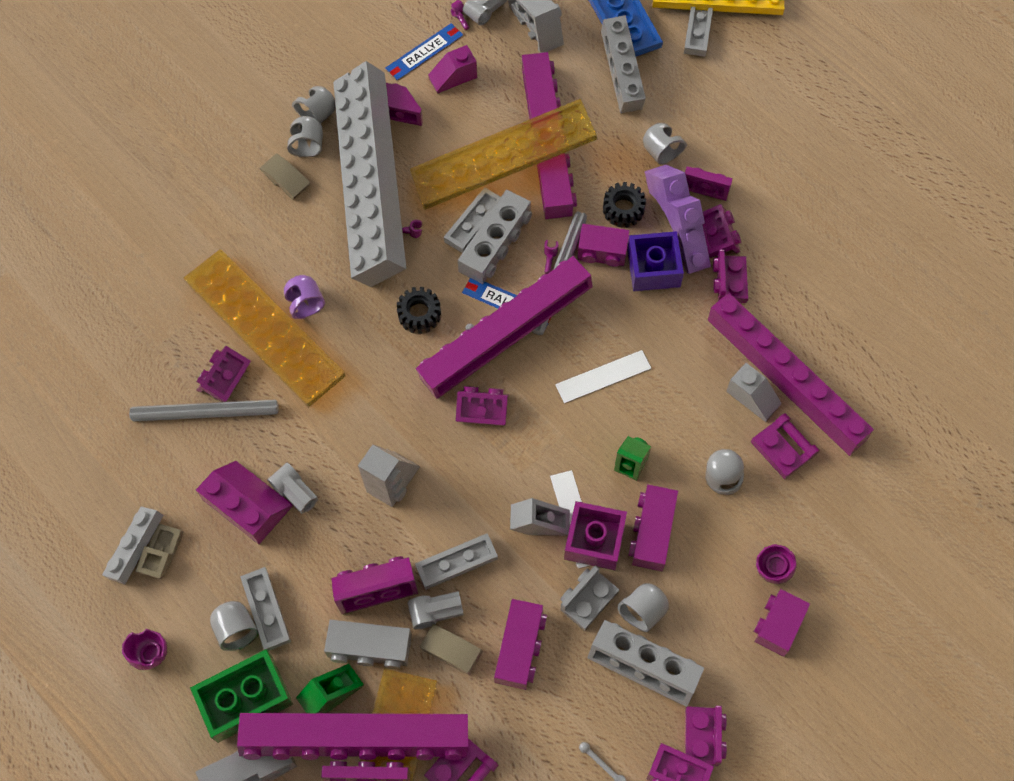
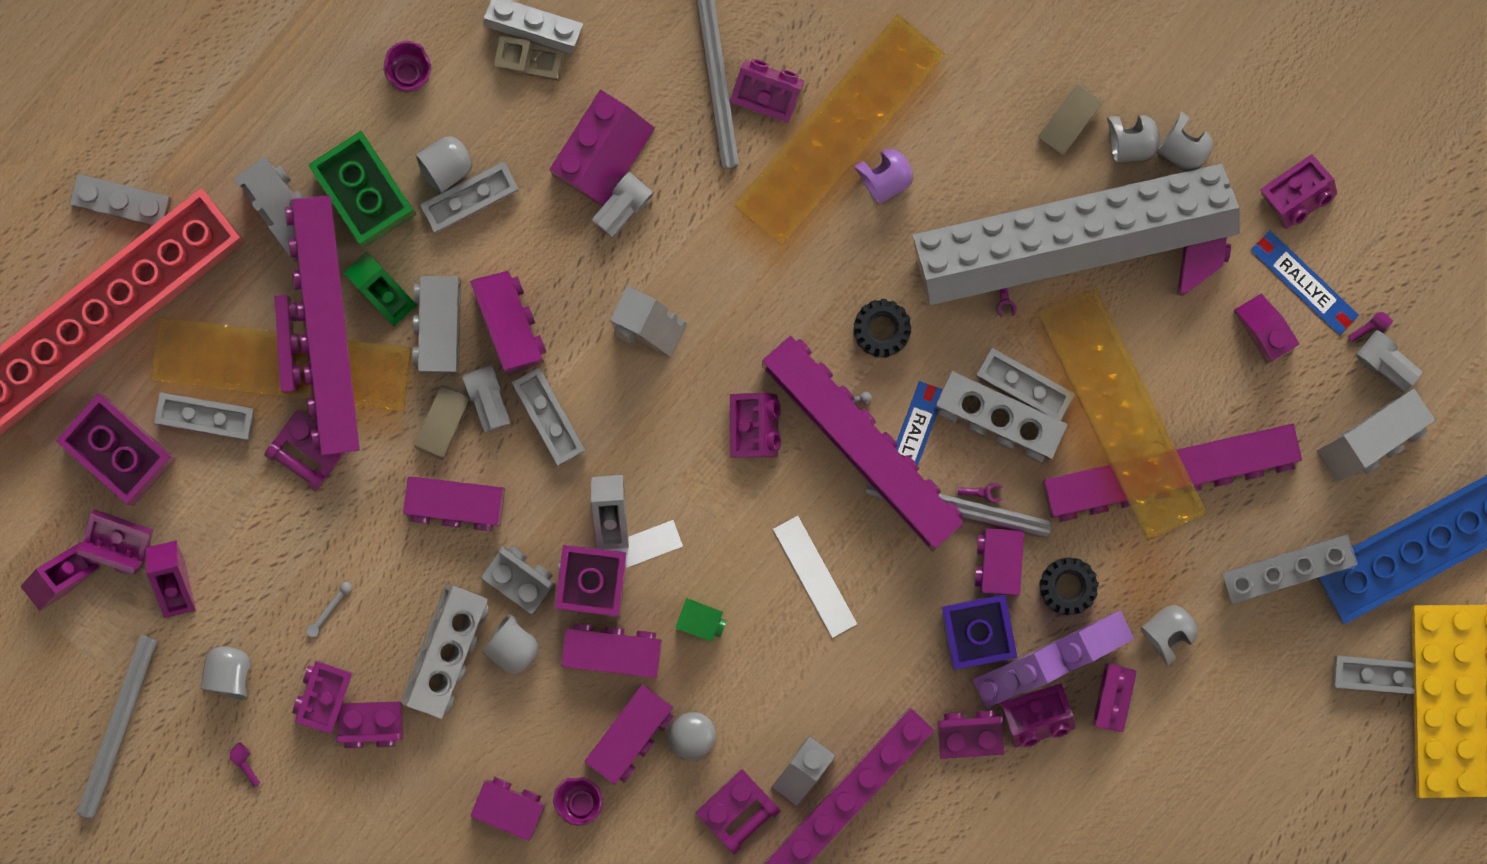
camera: 85 degrees right, 20 degrees up
(360, 44) = (1300, 191): none -> magenta bracket
(722, 519) = (630, 735): none -> magenta brick

